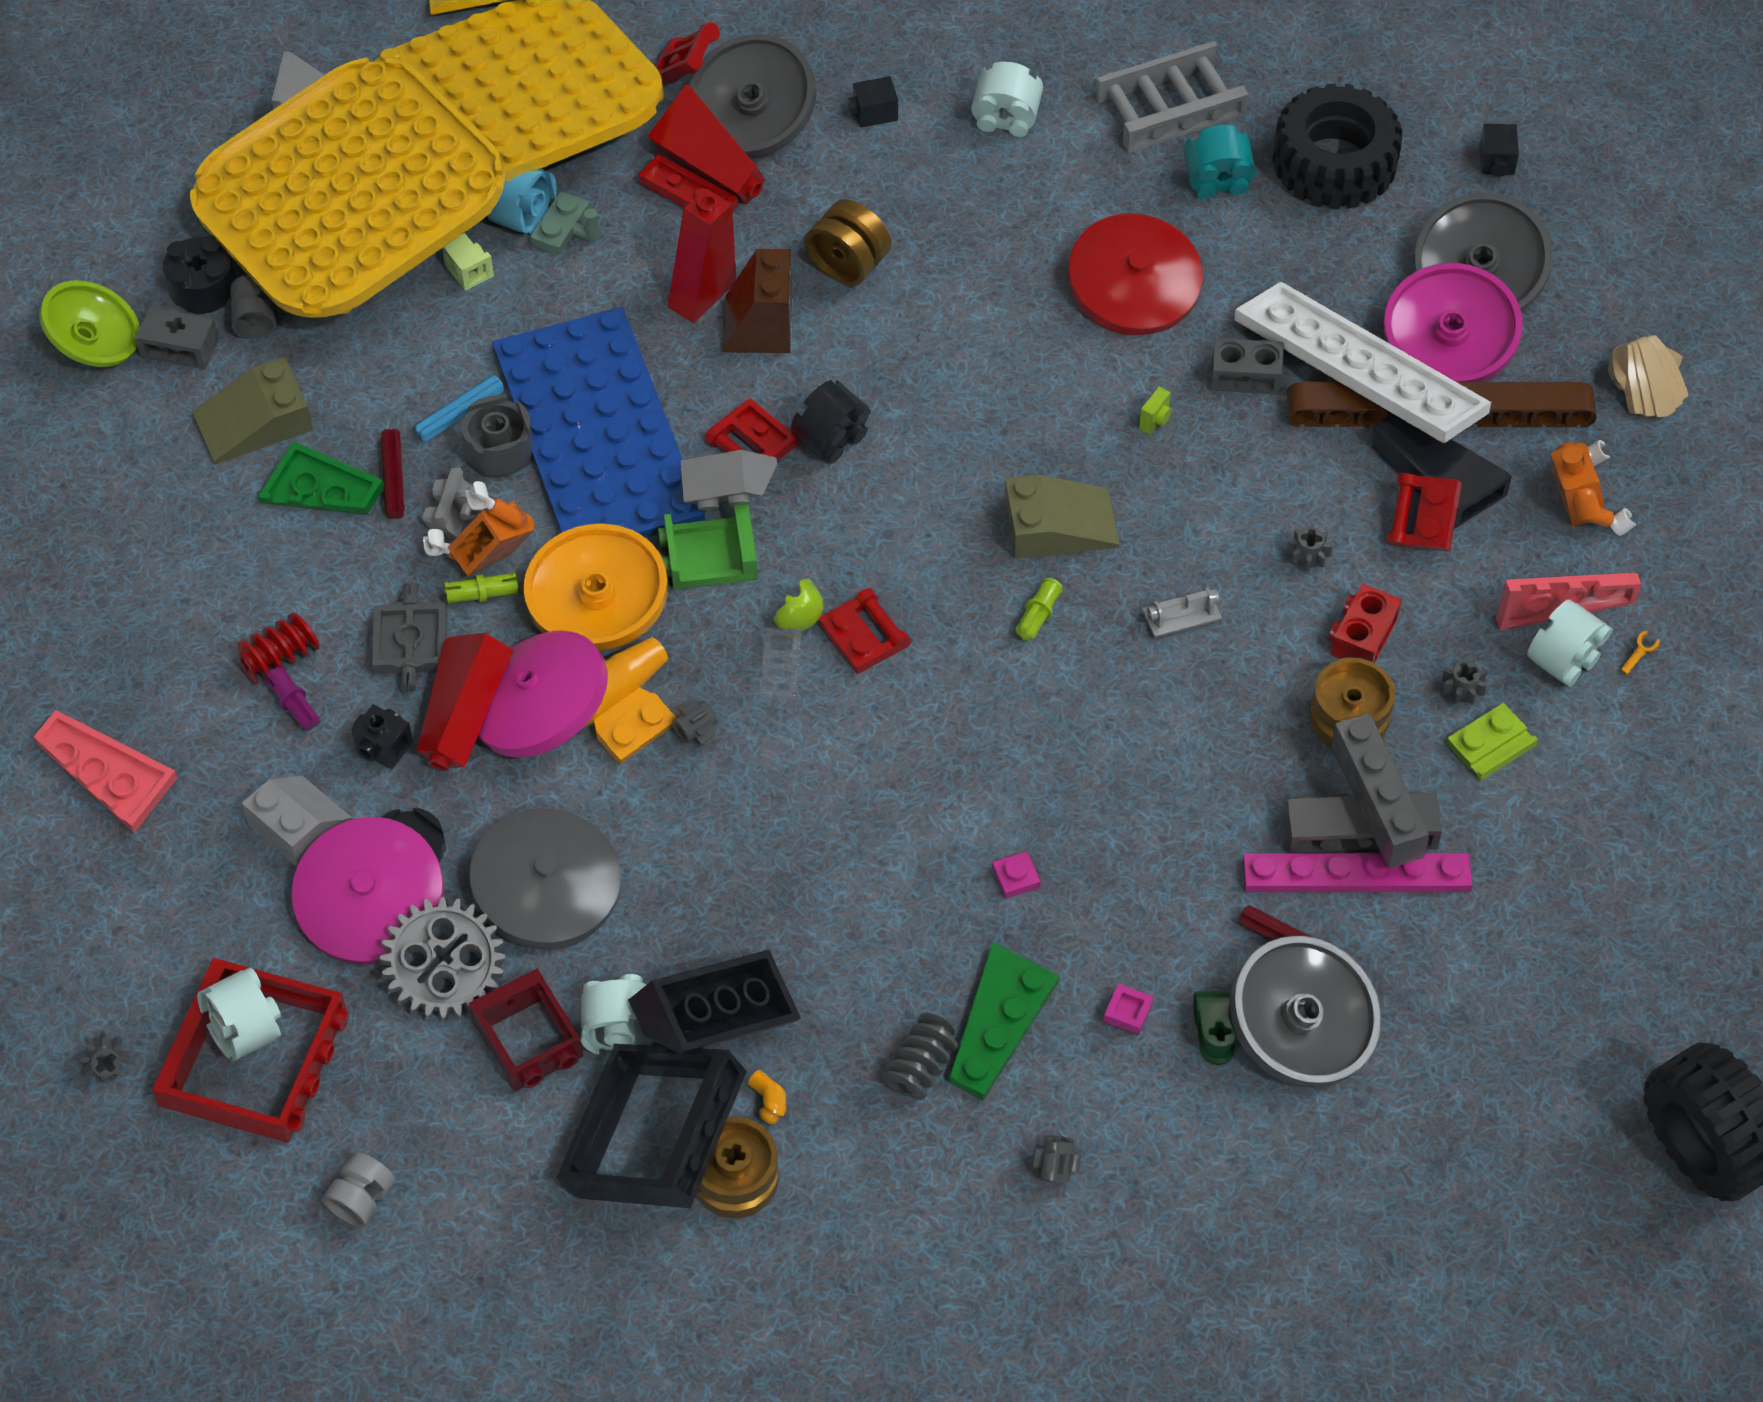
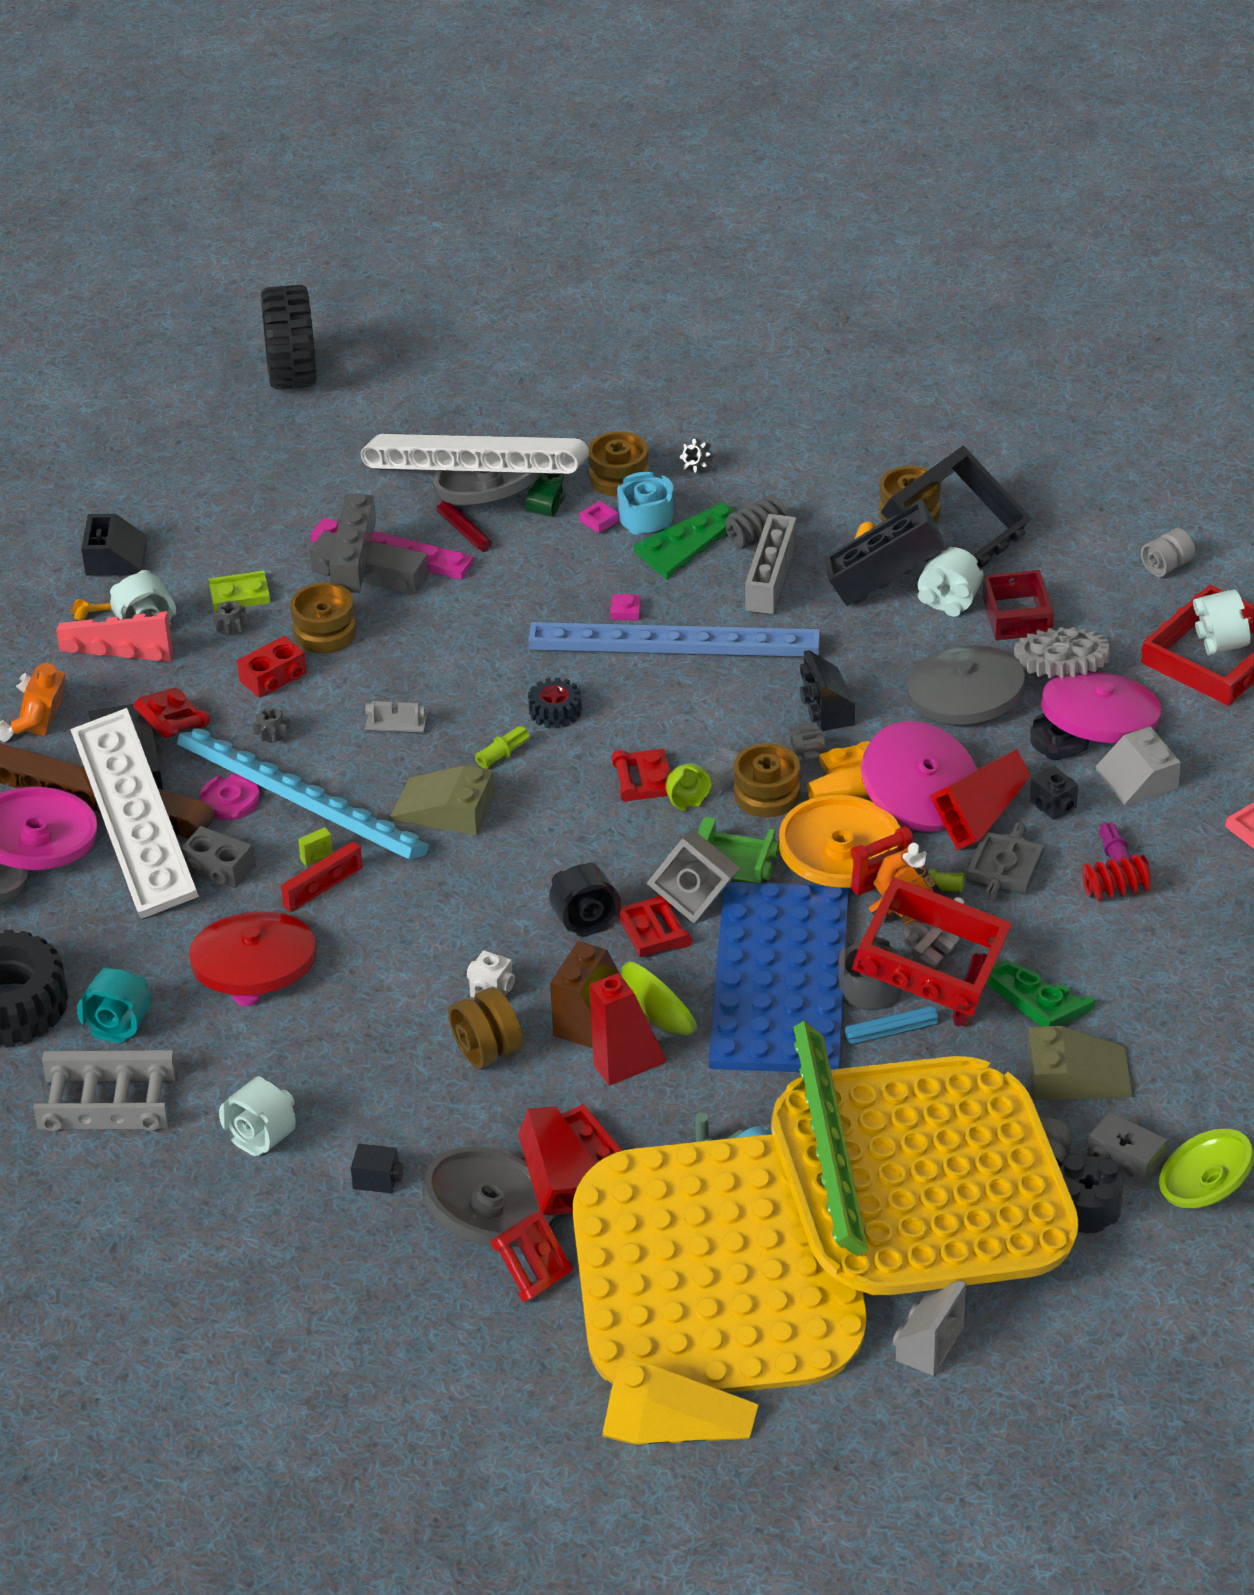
camera: 155 degrees left, 15 degrees down
(435, 142) = (830, 1139): none -> bright green plate
(443, 492) = (944, 915): none -> red window
(531, 532) = (866, 869): none -> red plate
(689, 311) = (658, 1002): none -> lime dish
(699, 787) = (825, 693): none -> black slope
(714, 645) = (767, 780): none -> pearl gold wheel
(862, 980) = (770, 564): none -> light grey brick
(880, 316) = (490, 971): none -> white brick
(925, 834) = (673, 639): none -> medium blue plate
(1018, 676) = (554, 703): none -> black wheel
(1075, 1035) = (645, 503): none -> medium azure brick
(1126, 379) = (321, 876): none -> red plate
(1150, 1098) = (614, 458): none -> pearl gold wheel
(1218, 474) = (308, 796): none -> medium azure plate
(1294, 466) = (230, 804): none -> dark pink tile
(1332, 1010) = (475, 453): none -> white beam
(1681, 733) = (112, 546): none -> black slope

